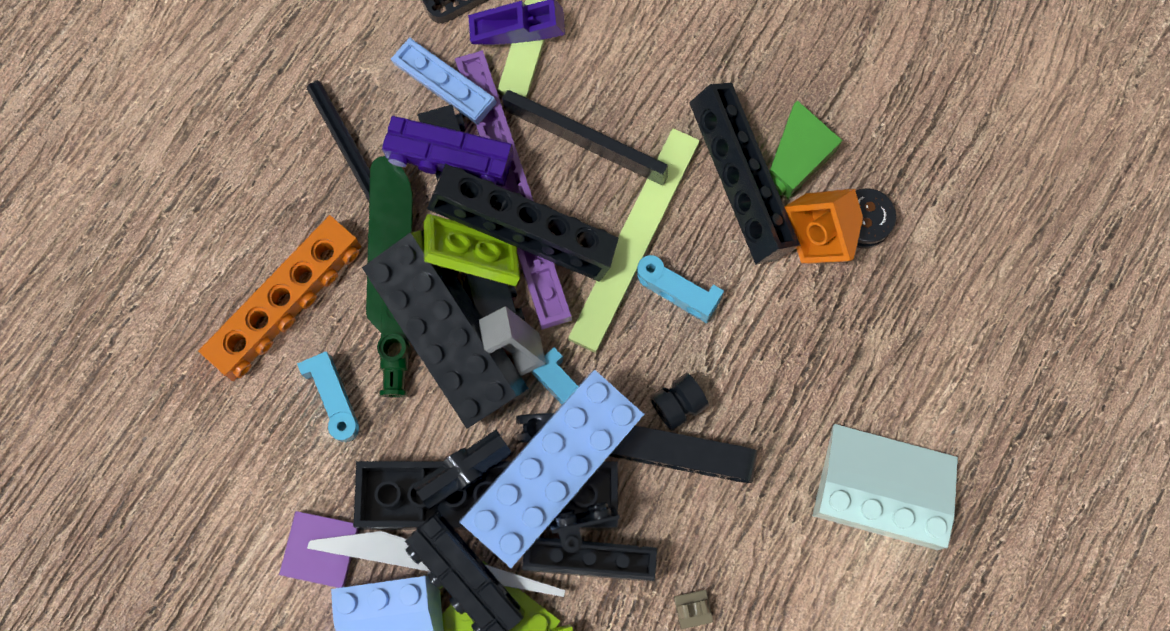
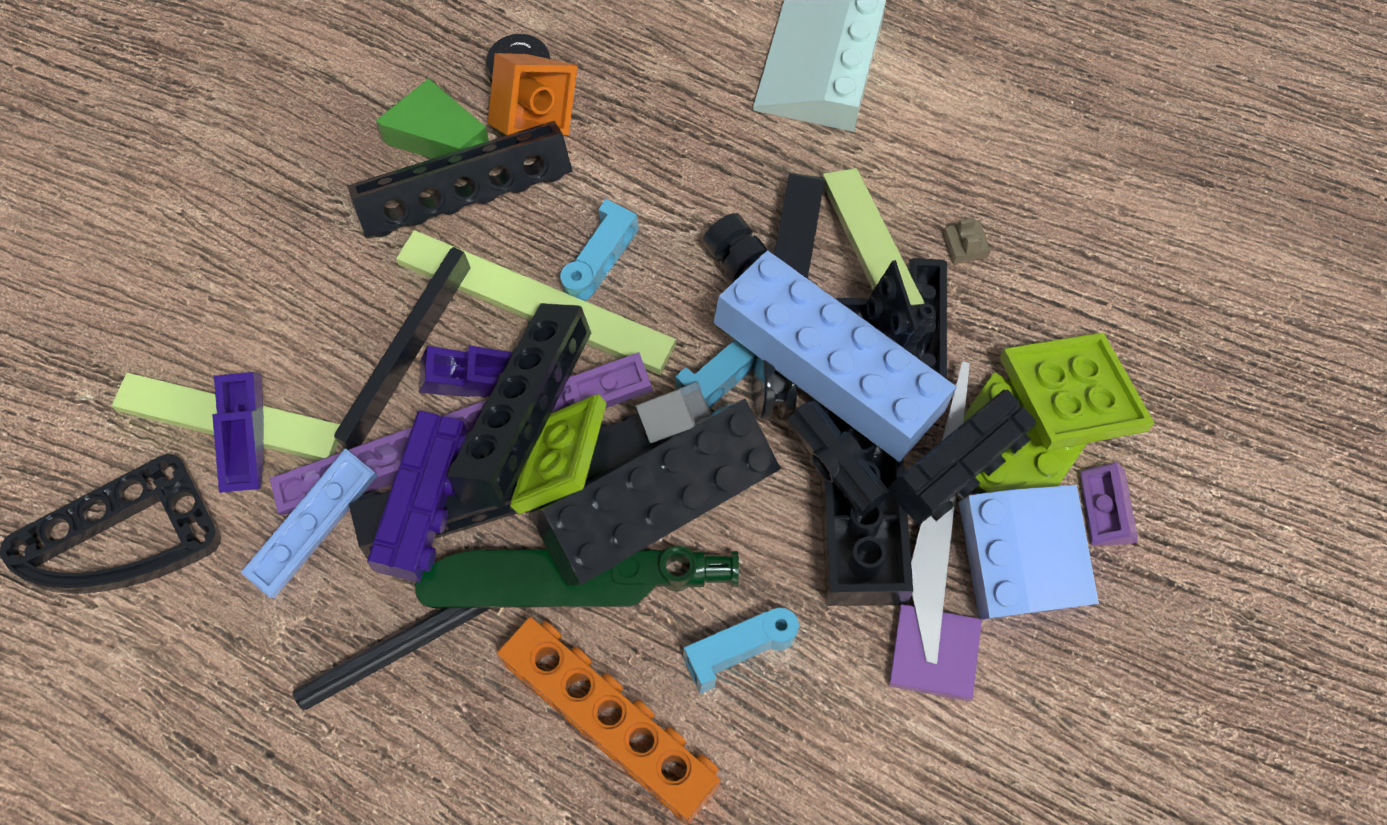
camera: 90 degrees left, 10 degrees down
(567, 183) = (461, 372): none -> dark purple slope
(674, 518) = (866, 229): none -> yellowish green tile

